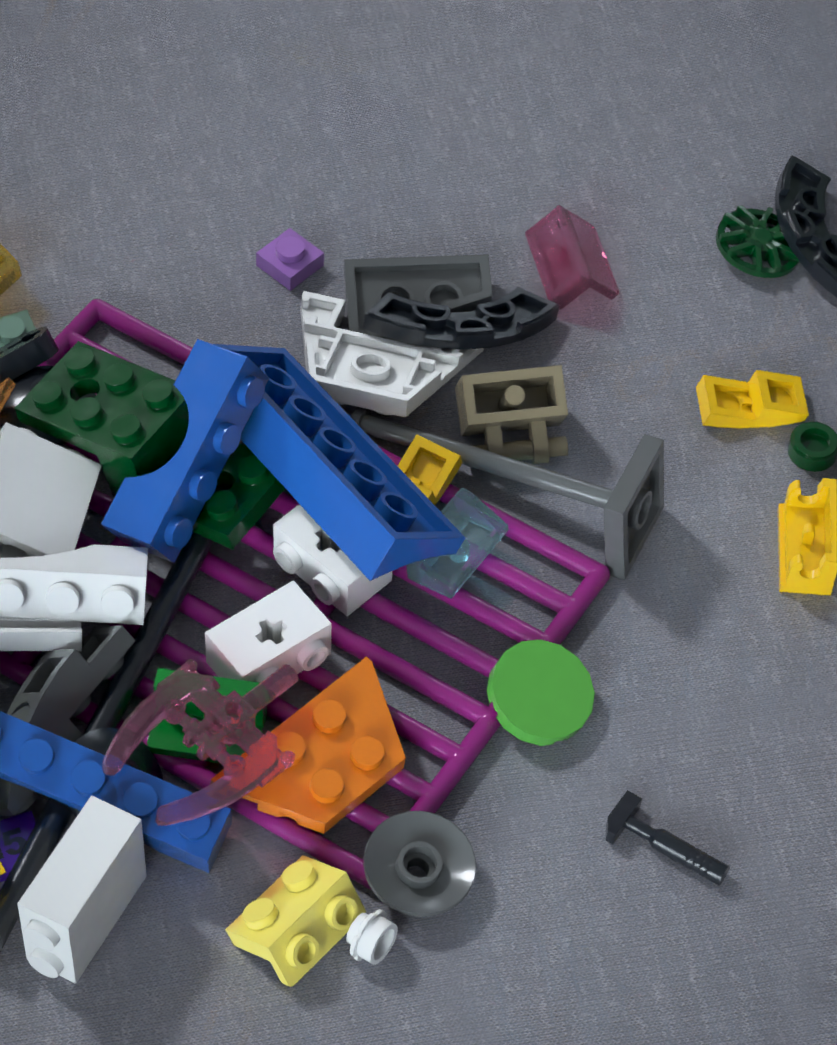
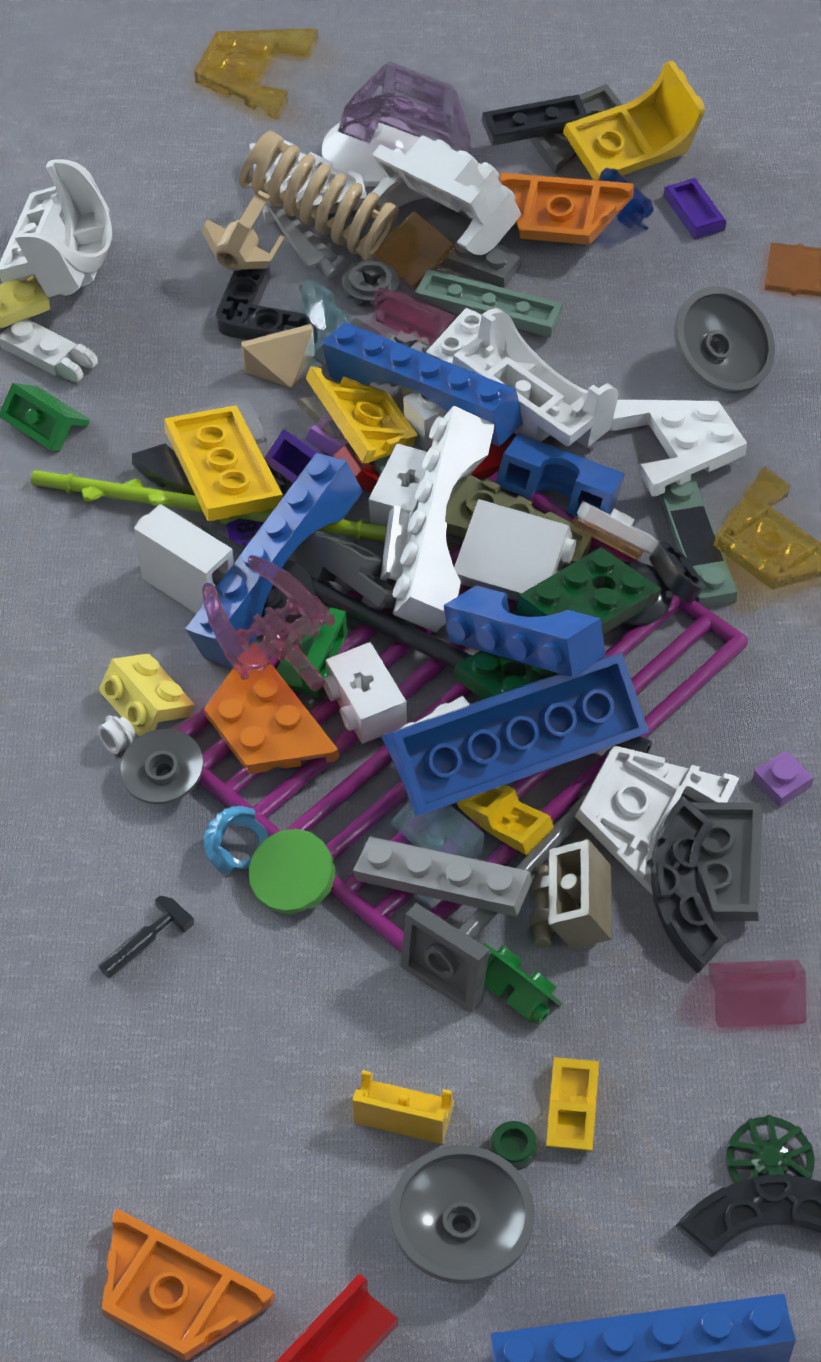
camera: 105 degrees right, 0 degrees up
(507, 766) = (237, 816): none -> dark azure piece
(524, 526) = (443, 876): none -> light grey plate
(609, 467) = (530, 993): none -> green hinge

